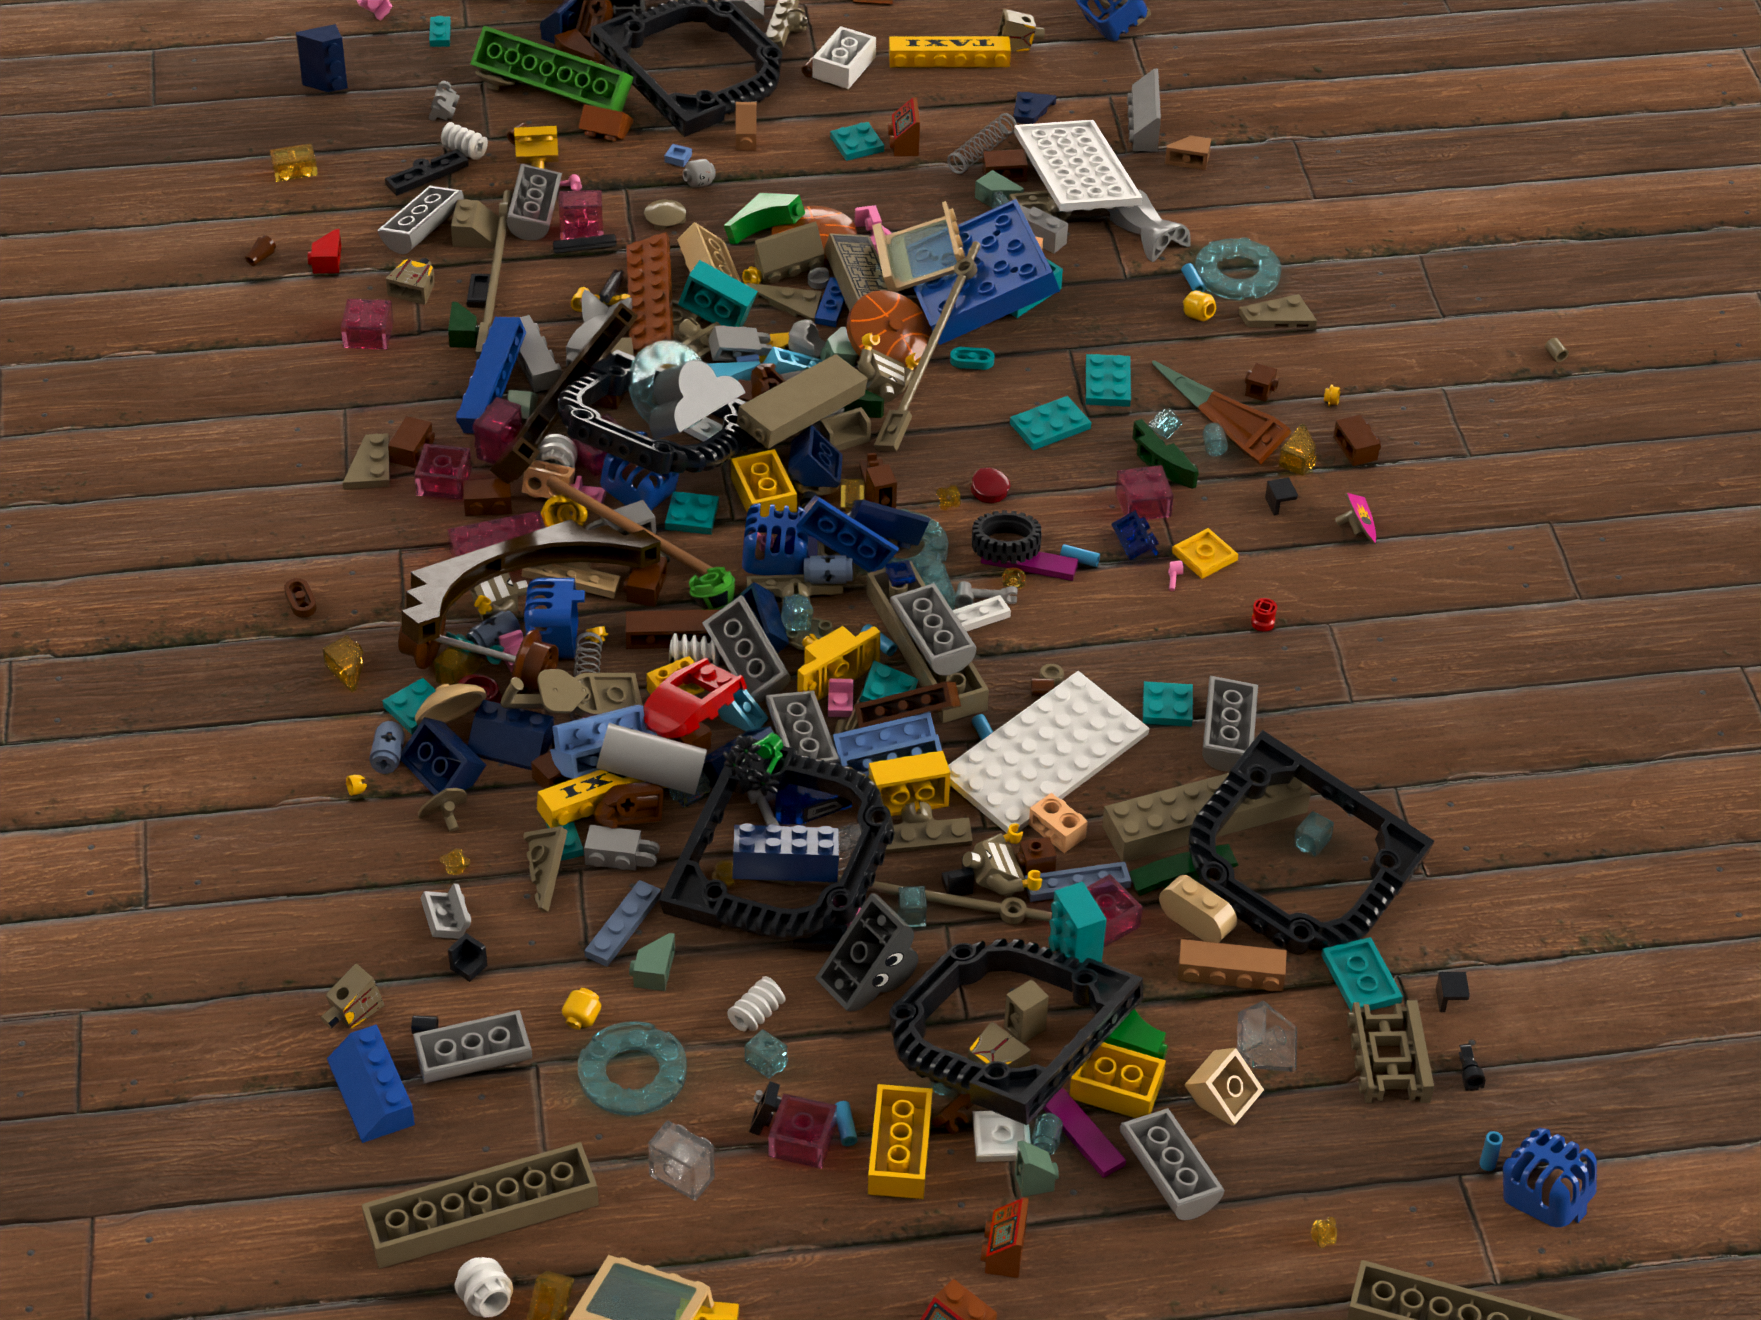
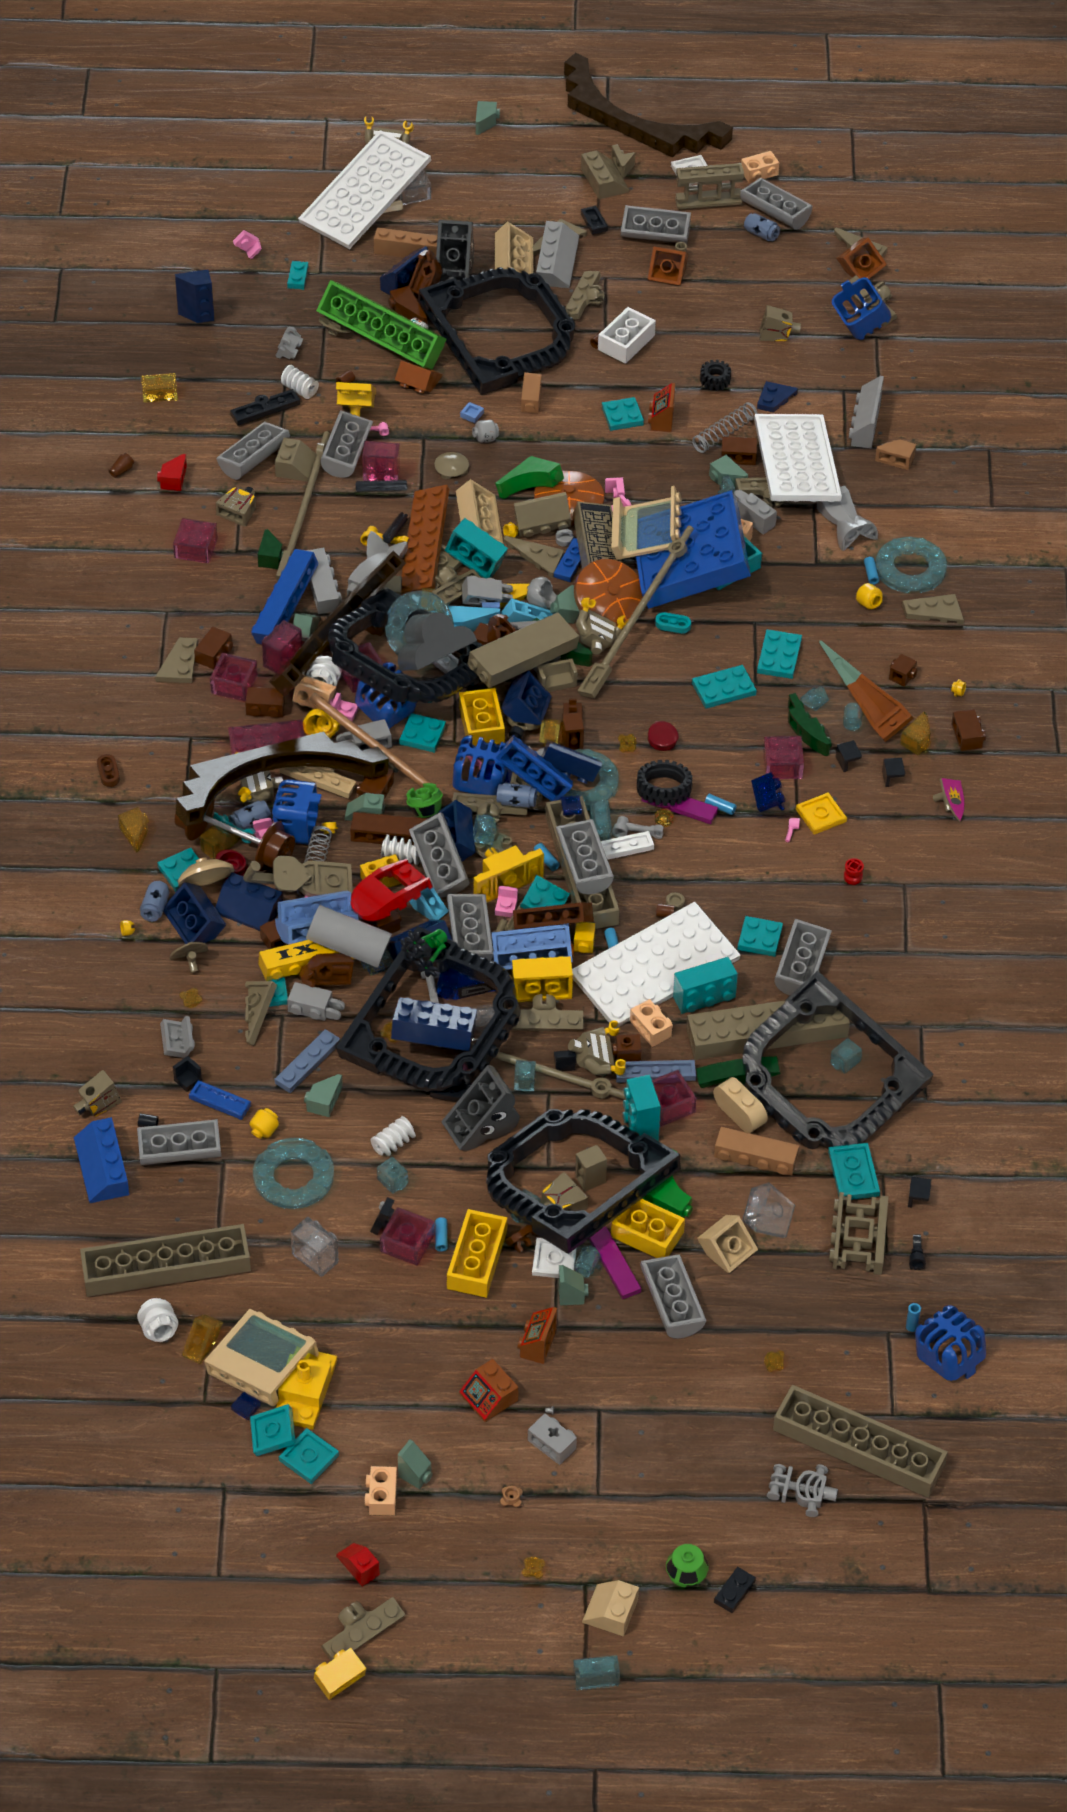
camera: 10 degrees right, 5 degrees up
(478, 290) = (288, 519): black tile -> none
(516, 986) = (219, 1100): none -> blue plate
(638, 600) = (366, 803): none -> sand green slope
(949, 729) = (584, 937): none -> yellow brick
(950, 51) = (717, 337): yellow brick -> none
(957, 90) = (718, 368): none -> black tyre
(1117, 768) = (705, 985): none -> teal brick
(1219, 480) = (846, 753): none -> black panel

